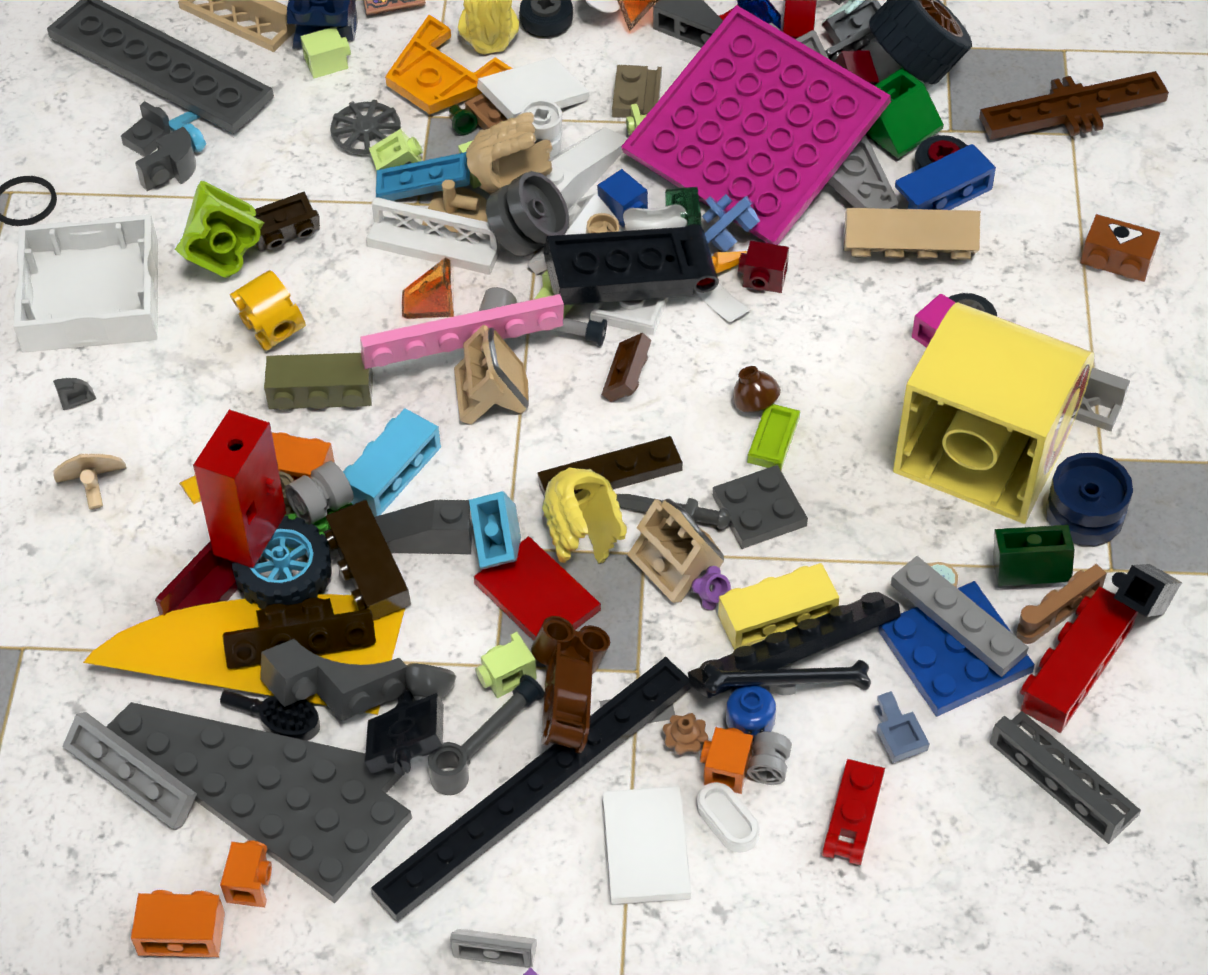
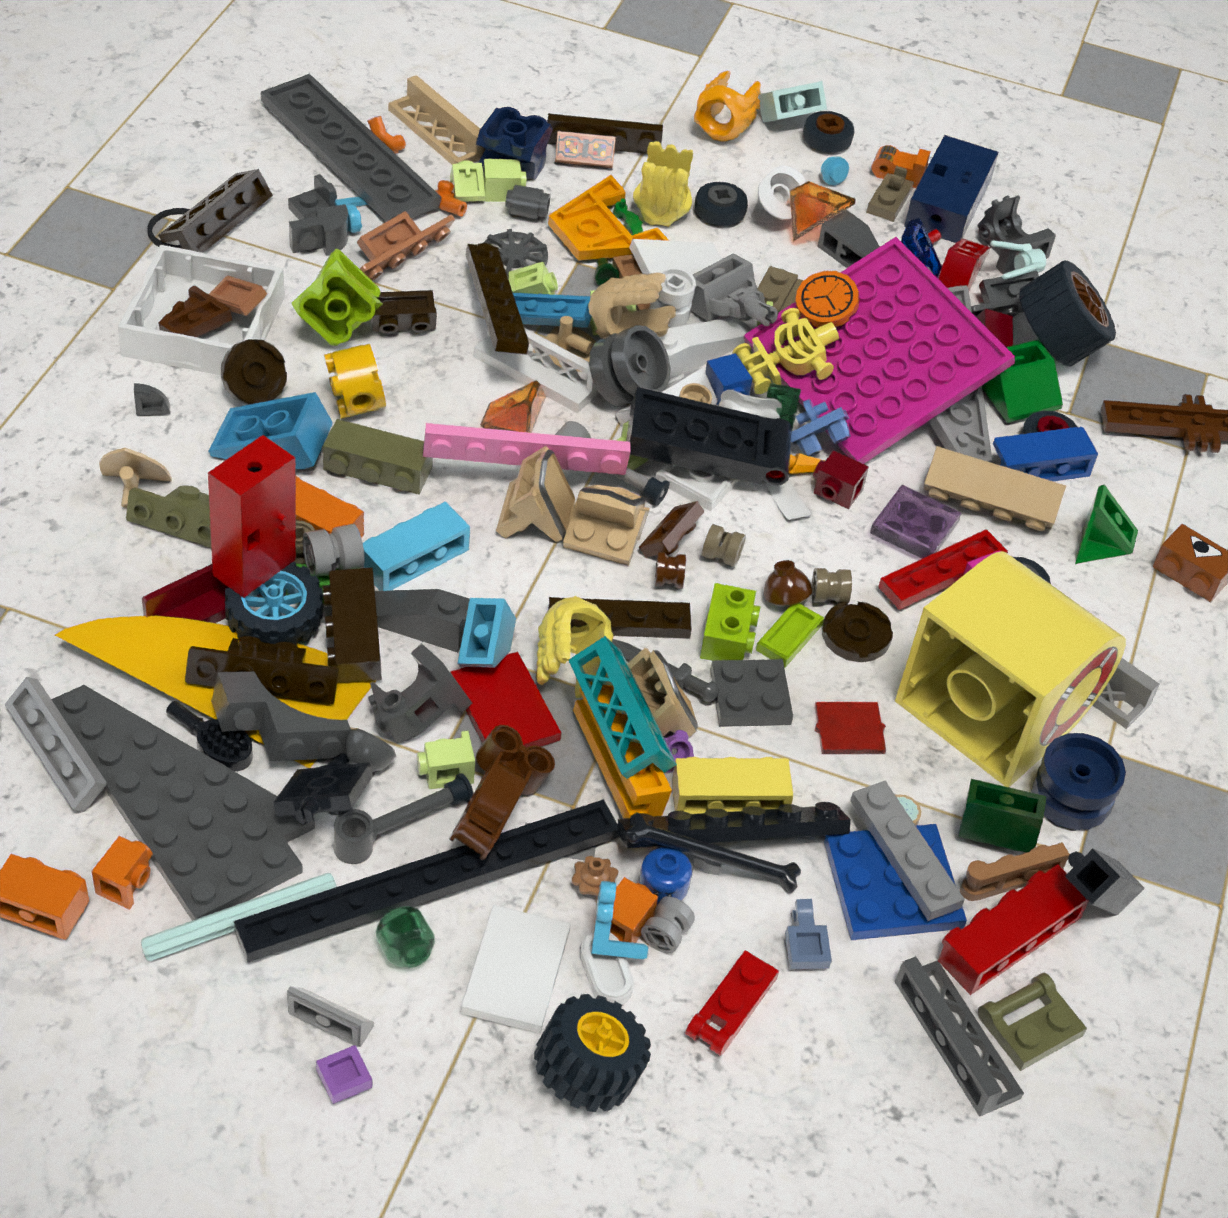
camera: 10 degrees right, 5 degrees down
(57, 171) = (219, 211): none -> dark brown fence
(81, 289) = (195, 315): none -> reddish brown wing
(115, 256) = (238, 294): none -> nougat tile
(153, 499) = (179, 514): none -> olive bracket
(164, 331) = (253, 371): none -> dark brown tile
(180, 33) = (394, 143): none -> orange arm
(207, 386) = (293, 423): none -> dark azure slope
(244, 148) = (396, 239): none -> nougat bracket
(280, 92) = (448, 202): none -> orange arm
(291, 63) = (468, 181): none -> yellowish green bracket
(358, 68) = (528, 202): none -> dark grey brick
(360, 889) = (222, 922): none -> light aqua axle
(372, 183) = (496, 299): none -> dark brown plate
(461, 619) = (419, 705): none -> dark grey tile
(465, 55) = (632, 220): none -> green piece
(535, 849) = (405, 937): none -> clear green head
(563, 379) = (606, 523): none -> tan piece
(593, 105) = (730, 290): none -> light grey brick
(640, 409) = (670, 570): none -> reddish brown wheel
(664, 602) = (641, 793): none -> light orange brick
(666, 559) = (633, 705): none -> teal fence
(689, 368) = (723, 545): none -> dark tan wheel
(690, 147) = (806, 353): none -> light yellow piece
(691, 88) = (827, 298): none -> orange tile
(712, 768) = (604, 915): none -> medium azure piece
(715, 445) = (729, 622): none -> lime brick
(750, 903) = (592, 1052): none -> black wheel
(796, 376) = (831, 585): none -> dark tan wheel
(834, 414) = (857, 631): none -> dark brown tile
(850, 288) = (915, 522): none -> clear purple plate
(862, 511) = (850, 728): none -> clear red piece
(888, 329) = (936, 570): none -> red plate
(1026, 240) = (1106, 530): none -> green slope
(1133, 749) = (1040, 1031): none -> olive plate

